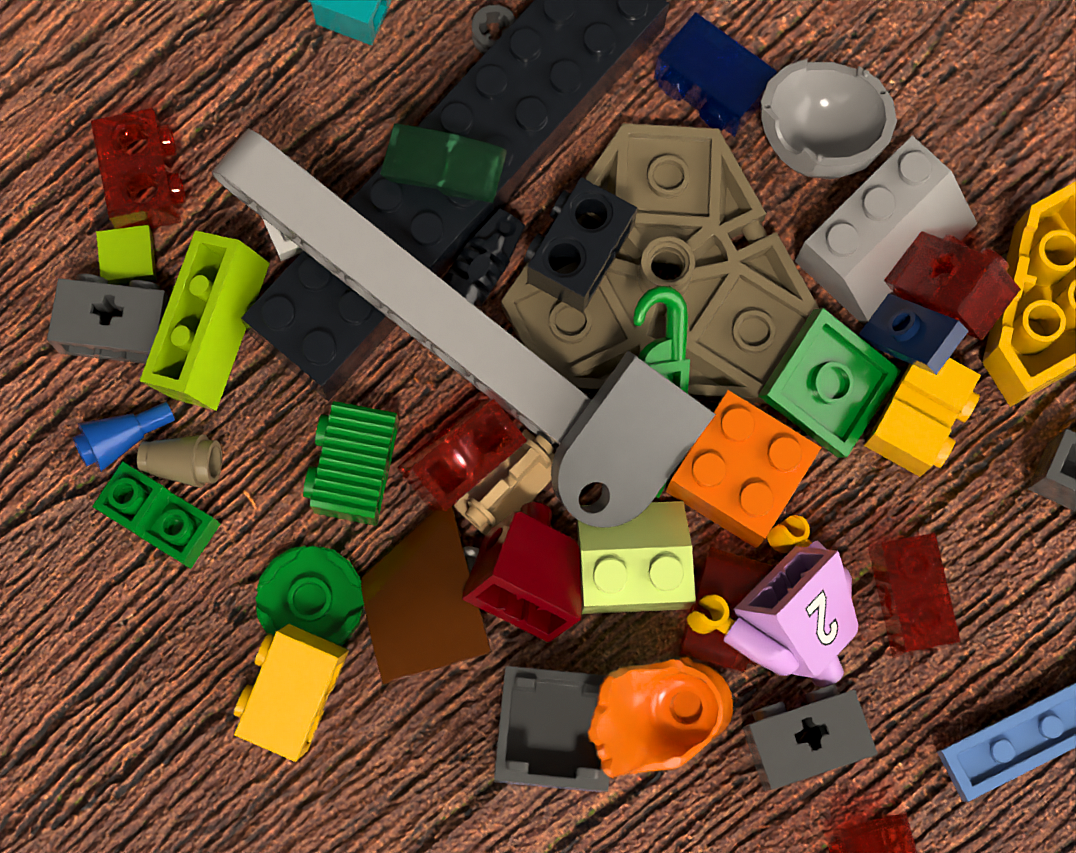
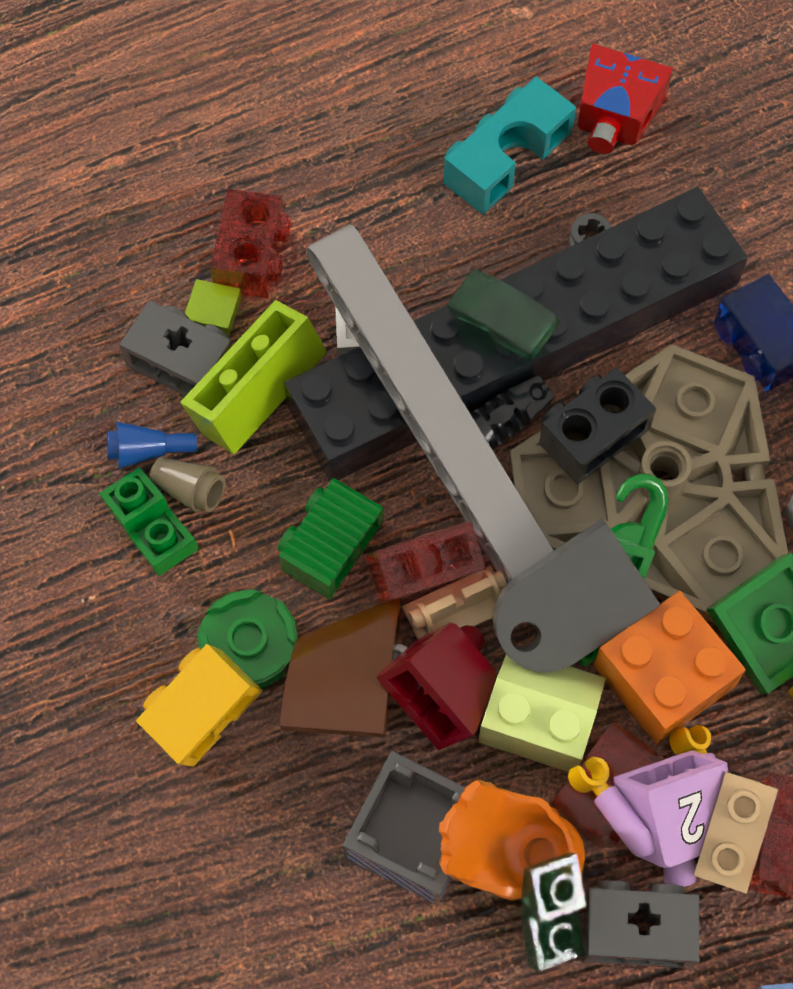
camera: 25 degrees right, 10 degrees down
(719, 761) = (549, 911): none -> slope
(868, 614) = (736, 832): none -> tan hinge

